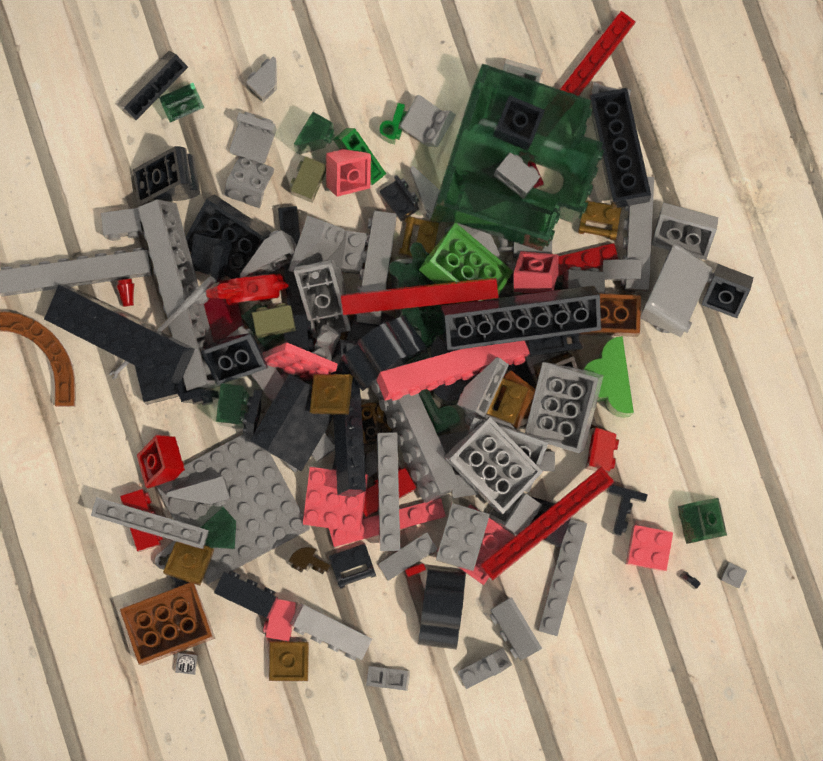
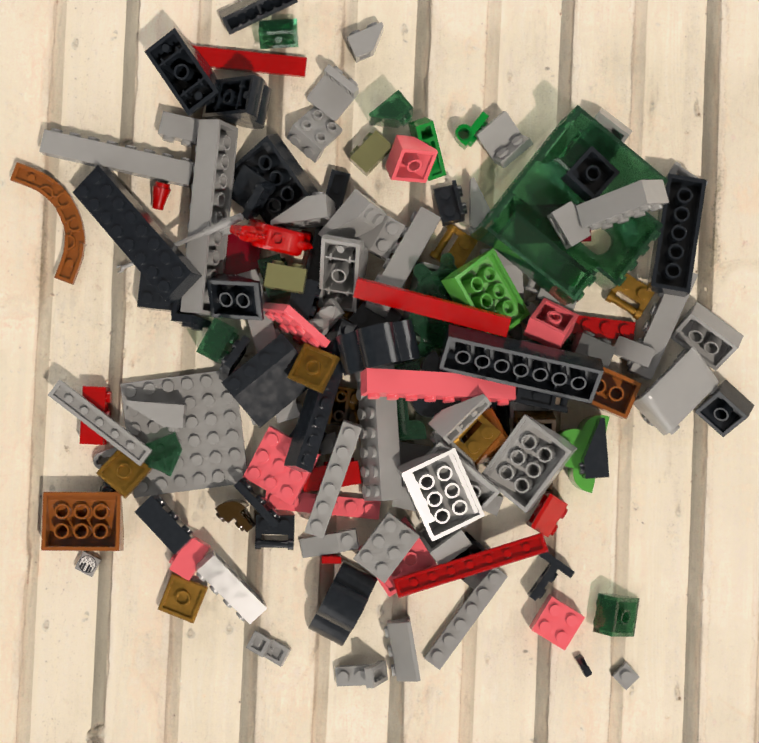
camera: 20 degrees right, 5 degrees up
(107, 168) = (184, 71): none -> black brick
(145, 143) = (254, 61): none -> red tile
(160, 461) = (132, 367): red slope -> none
(326, 542) = (258, 502): none -> black plate
(557, 137) = (622, 204): none -> light grey brick
(599, 54) = (691, 136): red plate -> none
(623, 376) = (595, 456): none -> black slope

